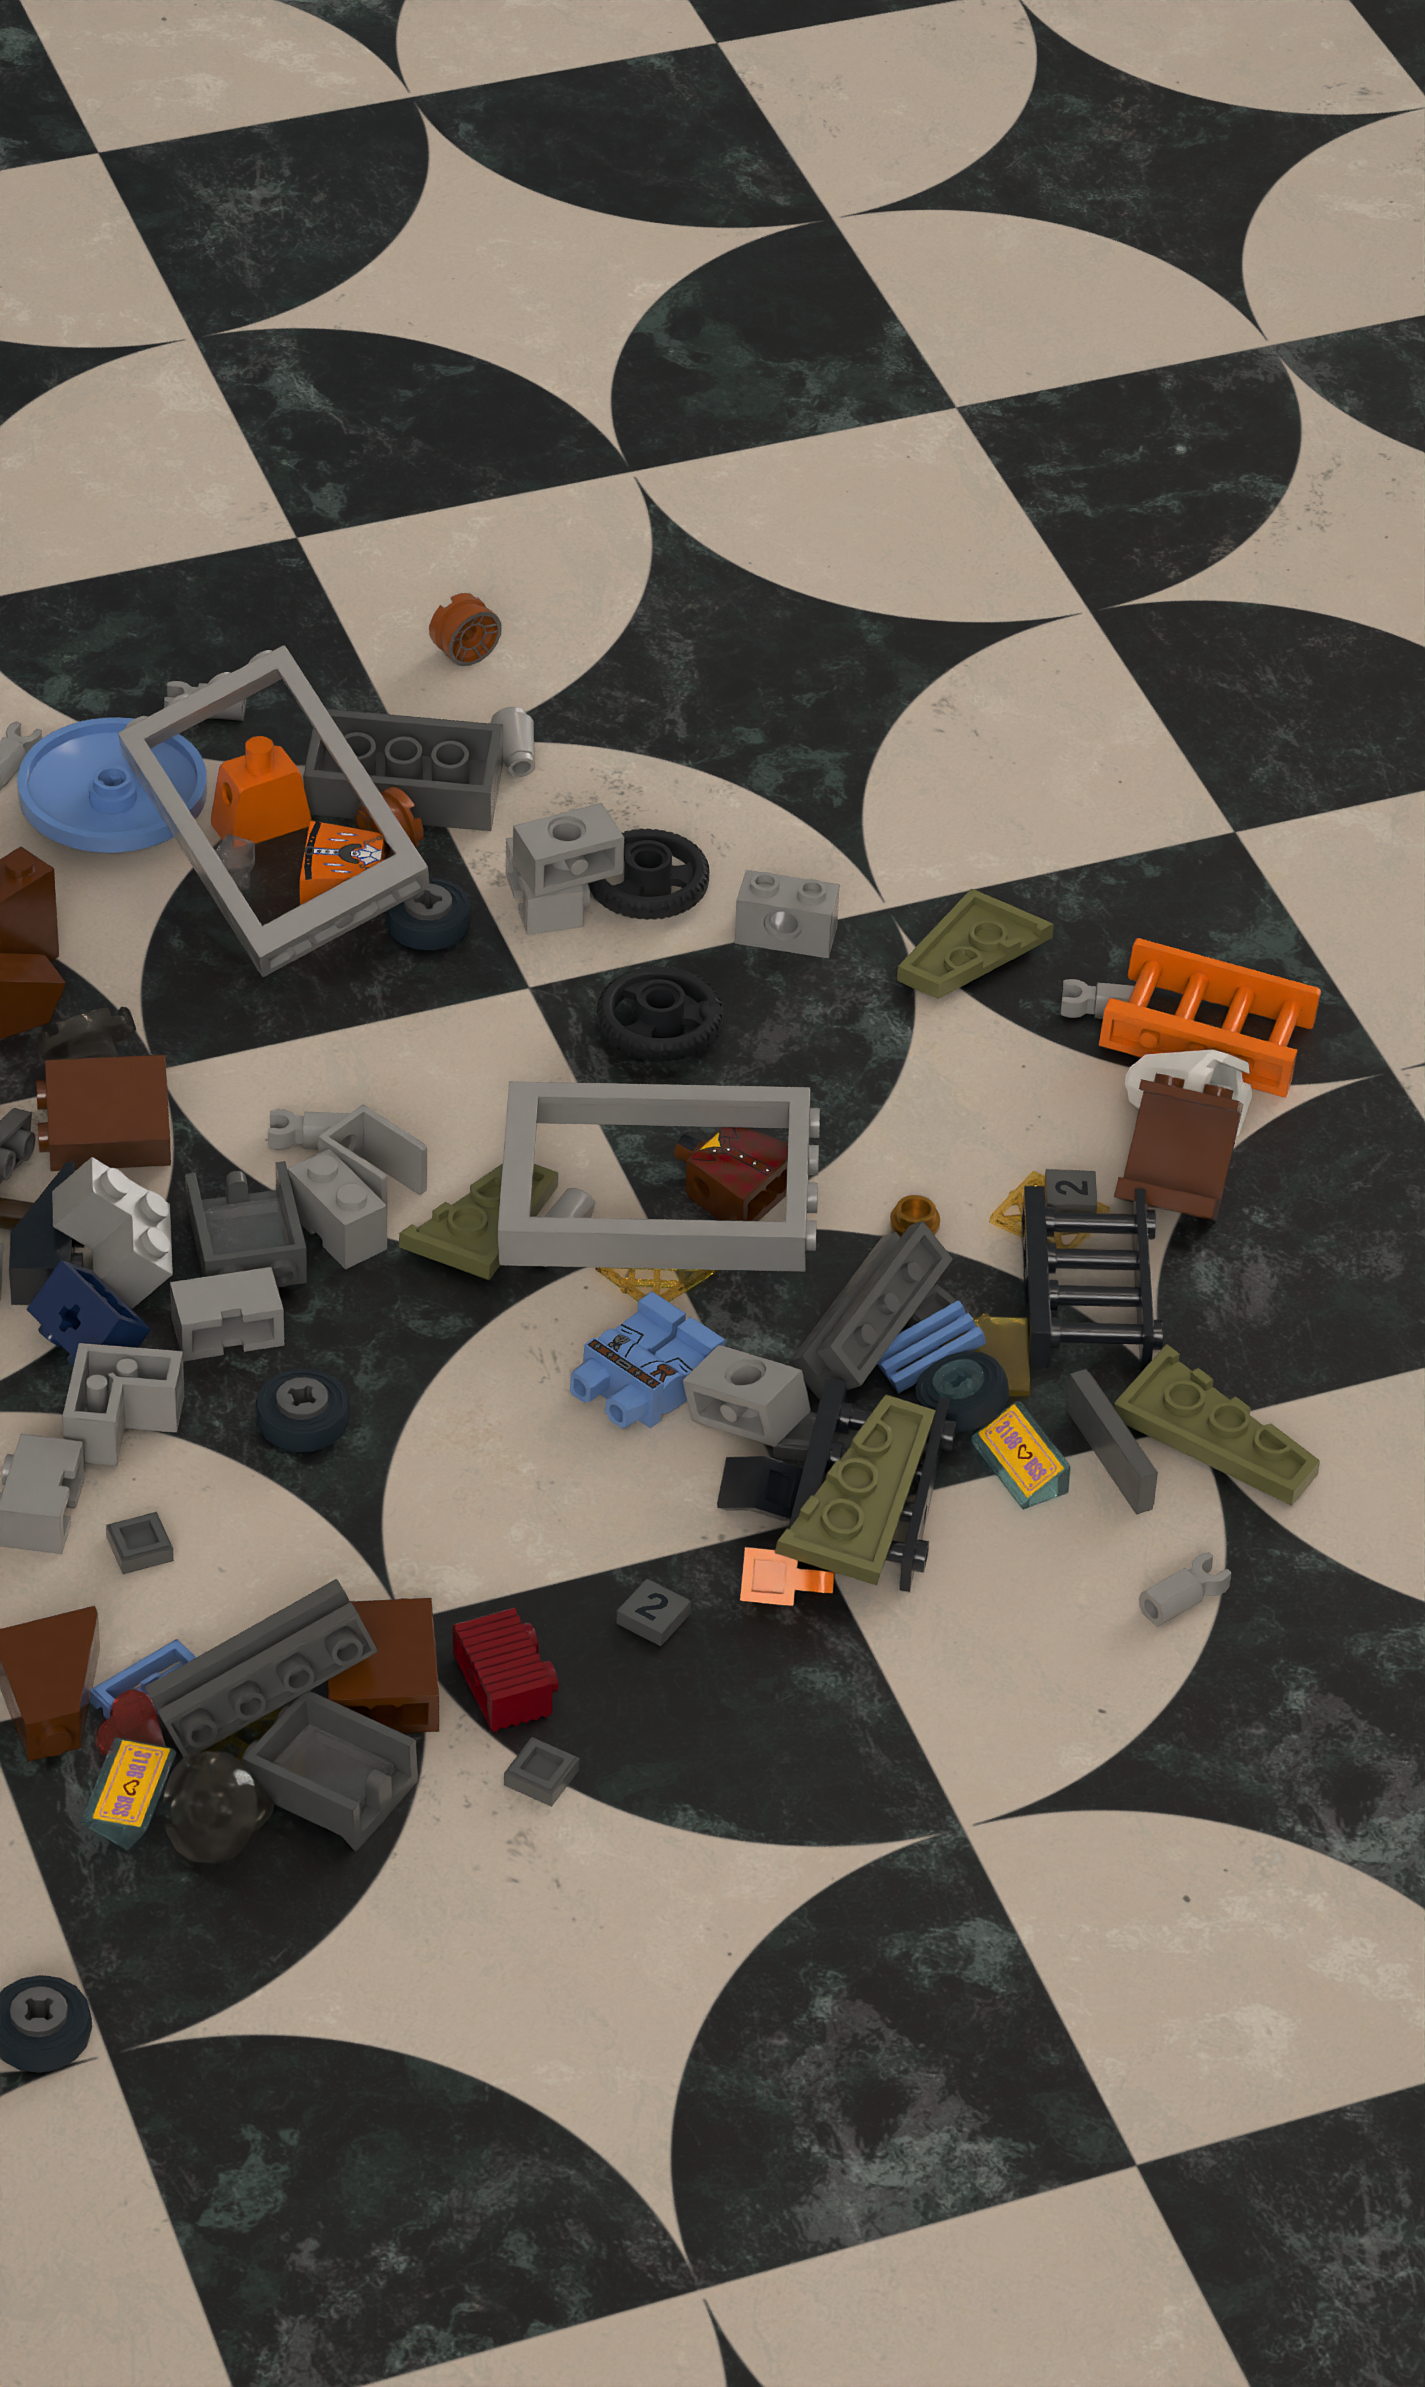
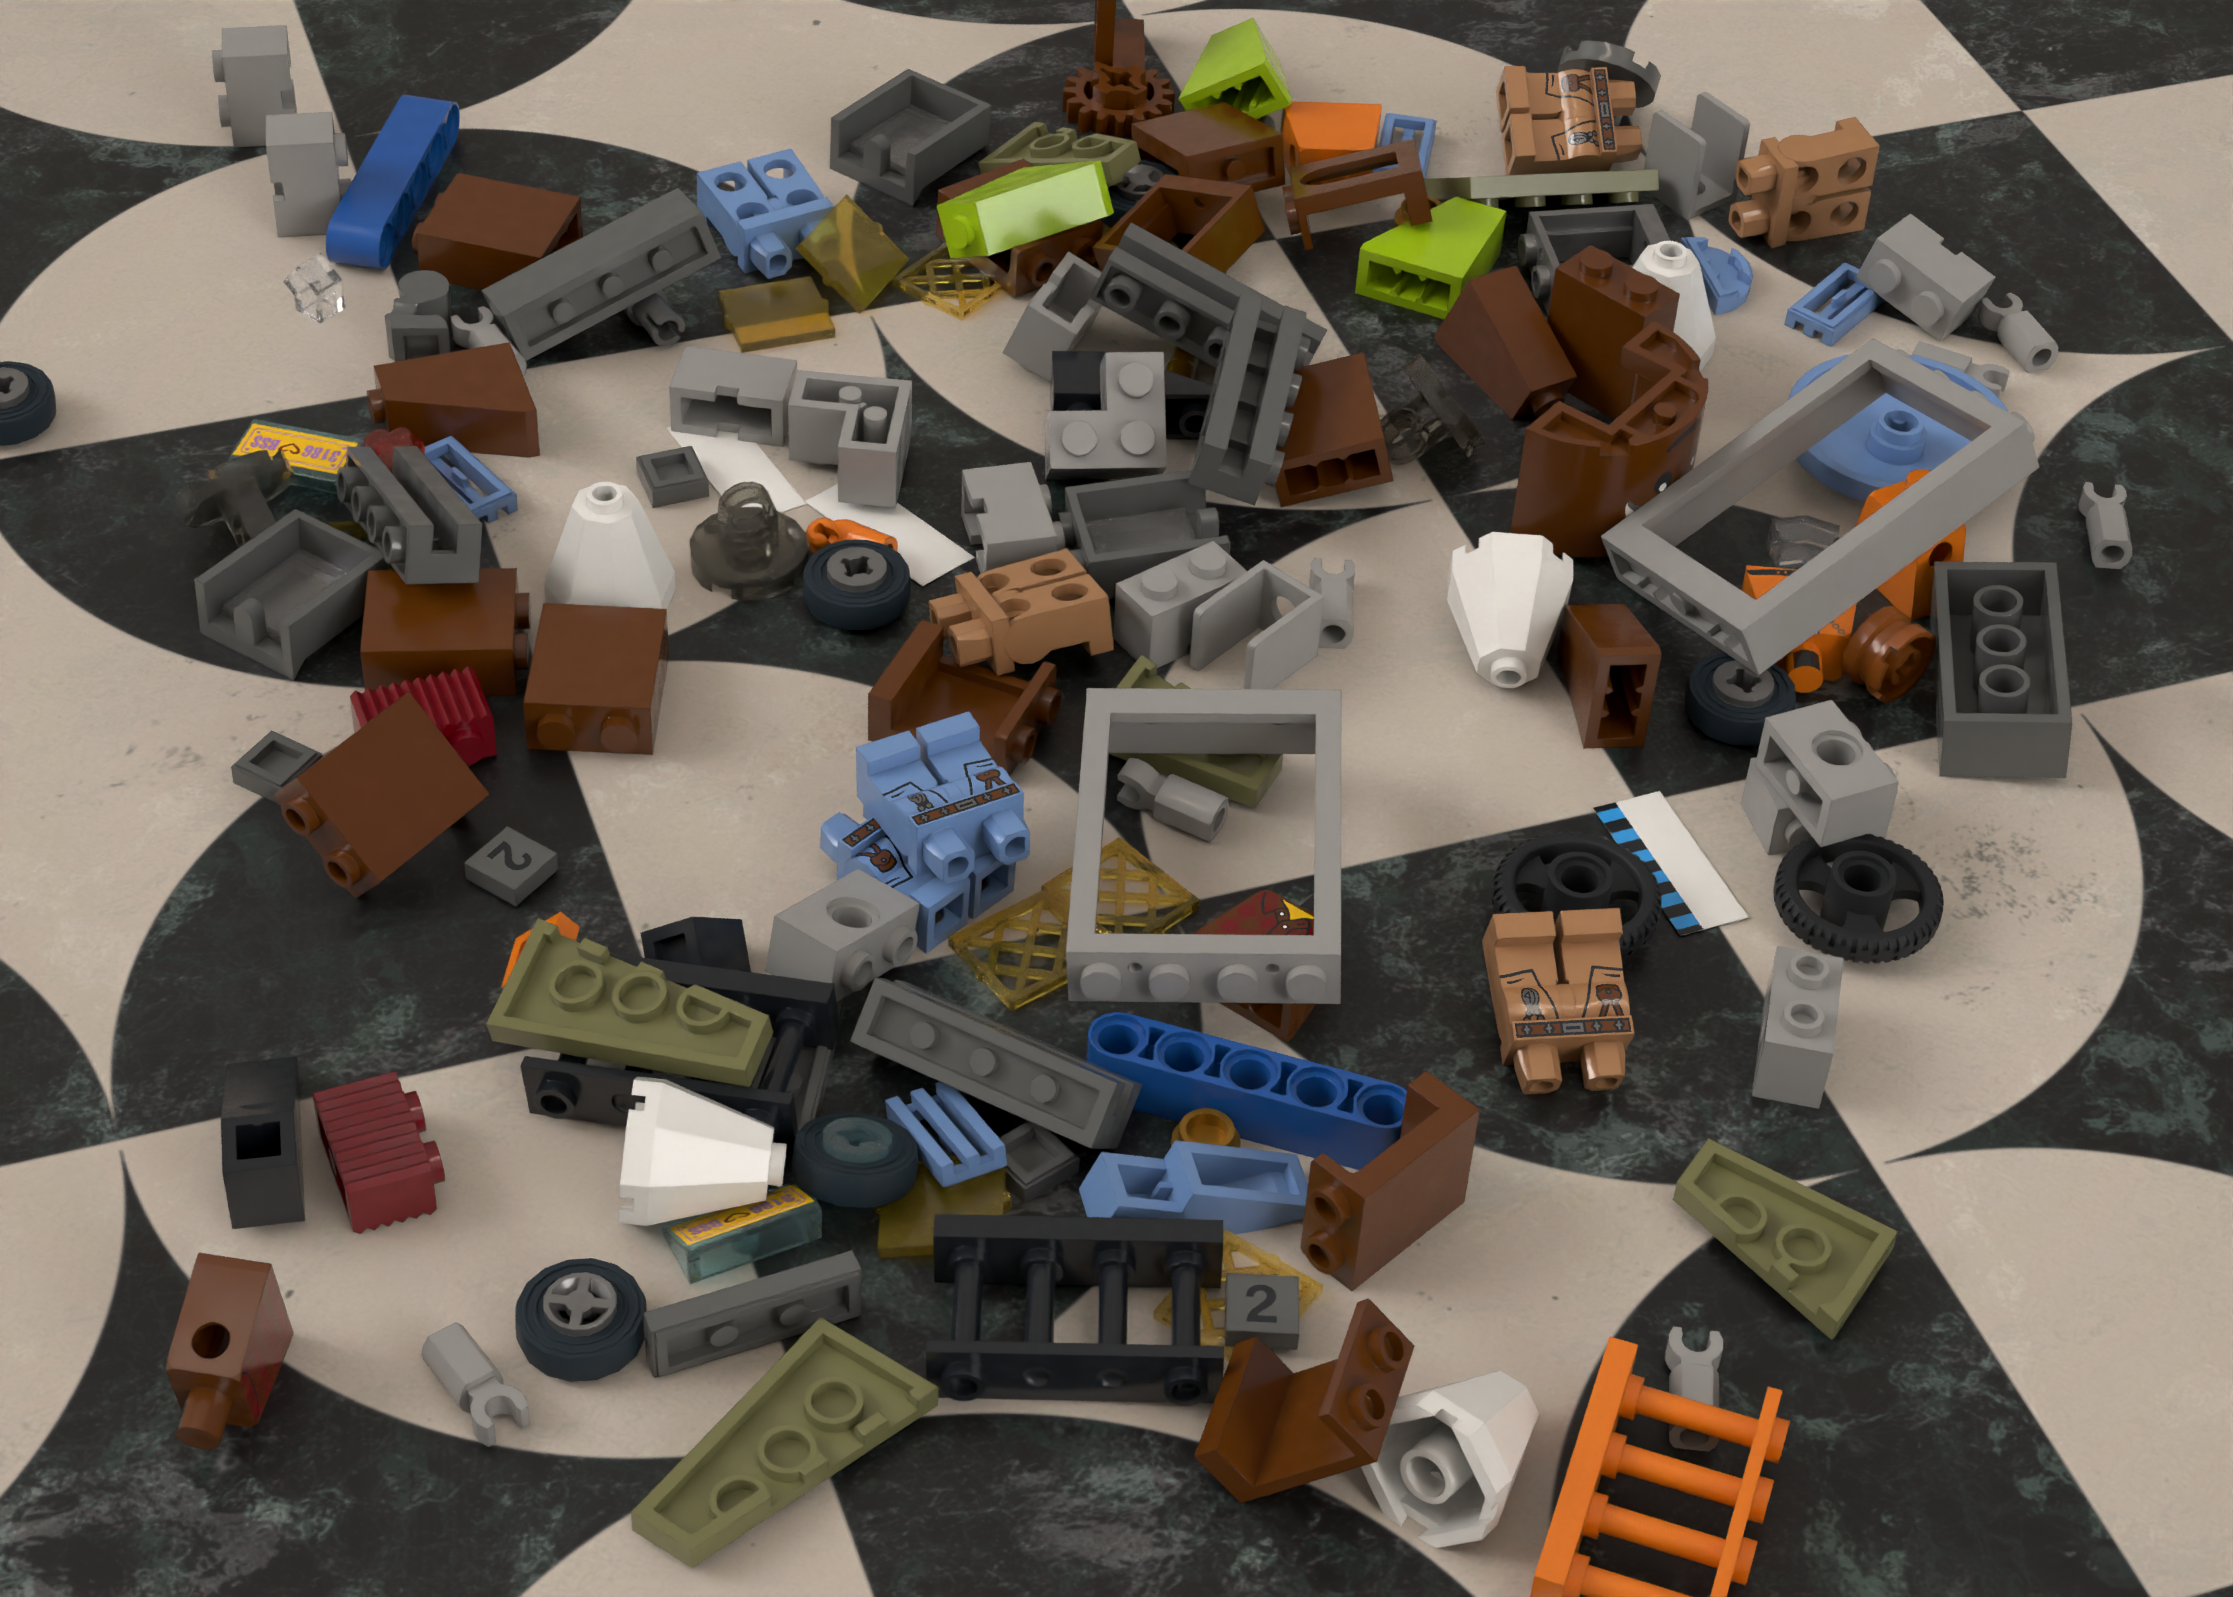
camera: 90 degrees right, 0 degrees up
(82, 1309) = (983, 414): dark blue brick -> none
(118, 1127) = (1249, 402): none -> dark grey brick
(142, 1493) = (735, 461): none -> white sticker
(174, 901) = (1591, 475): none -> reddish brown cylinder
(208, 1405) = (920, 545): none -> white sticker
(232, 1419) = (825, 532): none -> orange arm
(249, 1484) = (748, 547): none -> clear smoke tile
(294, 1552) = (609, 554): none -> white cone
(351, 1018) = (1509, 603): none -> white cone
(363, 1312) = (1024, 613): none -> medium nougat hips
(411, 969) = (1608, 673): none -> reddish brown slope
(442, 1556) = (596, 679): none -> reddish brown brick
(458, 1342) = (930, 686): none -> reddish brown panel
(517, 740) = (2105, 782): light grey cone -> none
(586, 976) = (1689, 885): none -> white sticker
(592, 1636) = (380, 796): none -> reddish brown panel
(632, 1312) = (943, 798): none -> medium blue hips
(743, 1298) = (1009, 919): none -> clear yellow window
(776, 1021) = (1559, 996): none -> medium nougat hips
(873, 1186) = (1263, 1092): none -> blue beam
(971, 1224) = (1200, 1182): none -> medium blue slope
(975, 1099) = (1373, 1215): none -> reddish brown panel
(981, 1654) = (377, 1151): none -> dark red brick
(983, 1711) = (262, 1143): none -> black slope
(988, 1473) = (692, 1156): none -> white cone
(1123, 1534) = (558, 1302): none -> black wheel
(1195, 1702) = (226, 1347): none -> reddish brown torso

